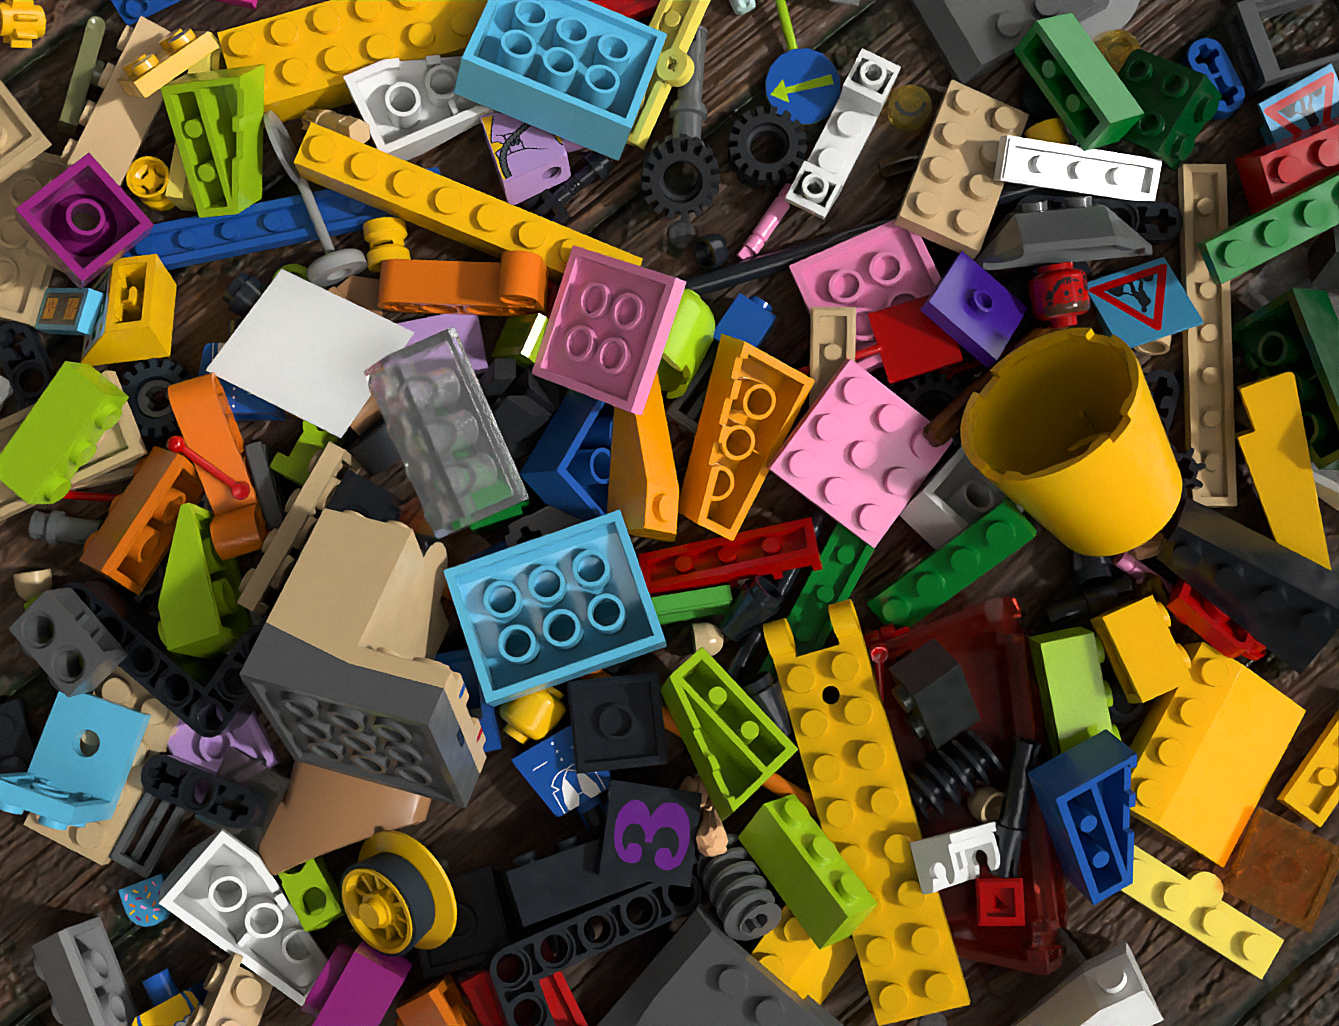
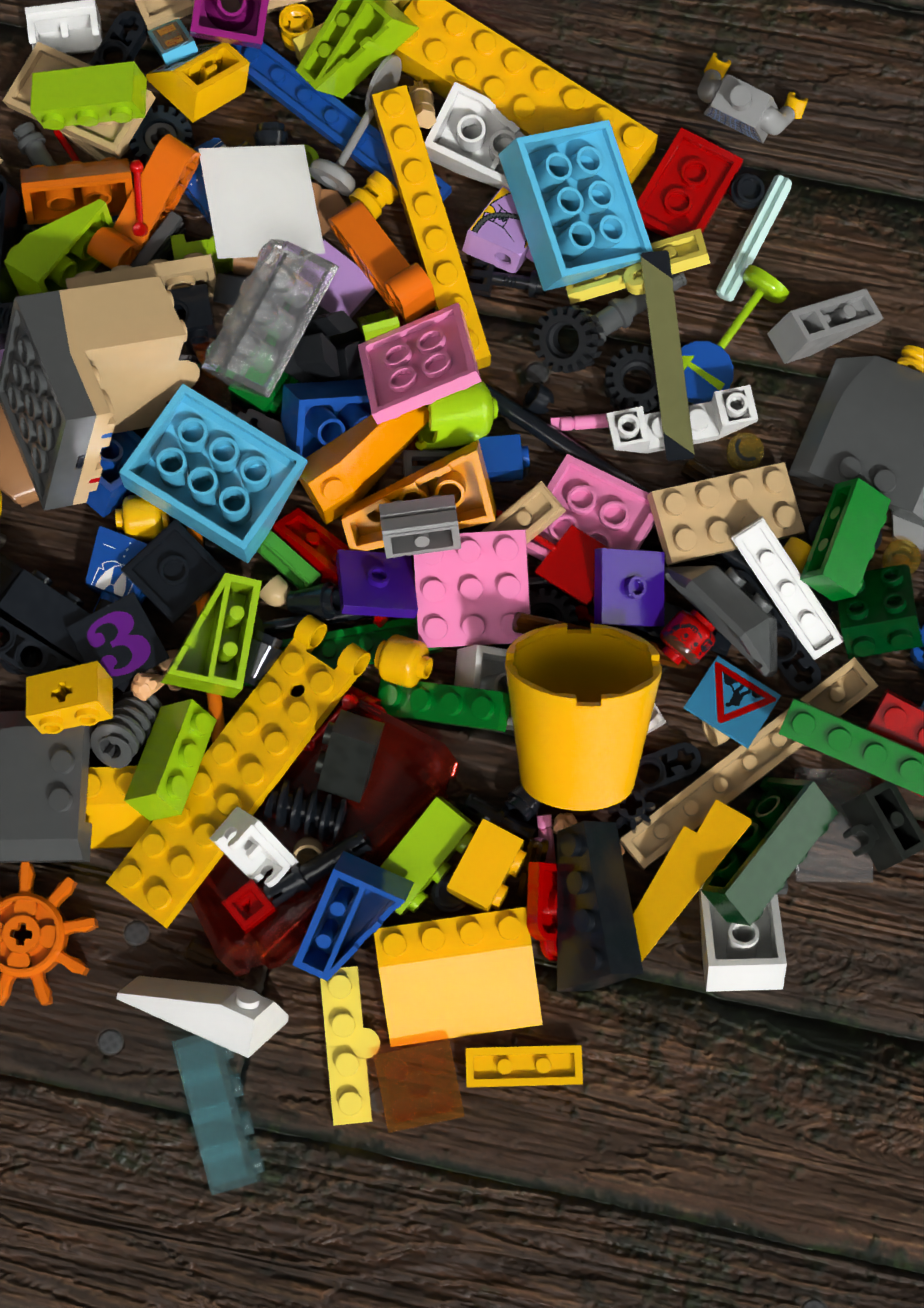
camera: 55 degrees right, 5 degrees down
(656, 939) = (69, 698): none -> yellow brick
(770, 99) = (667, 355): none -> olive sticker
(773, 453) = (419, 526): none -> light grey brick
(785, 539) = (376, 584): none -> dark purple plate
(879, 572) = (403, 661): none -> yellow head

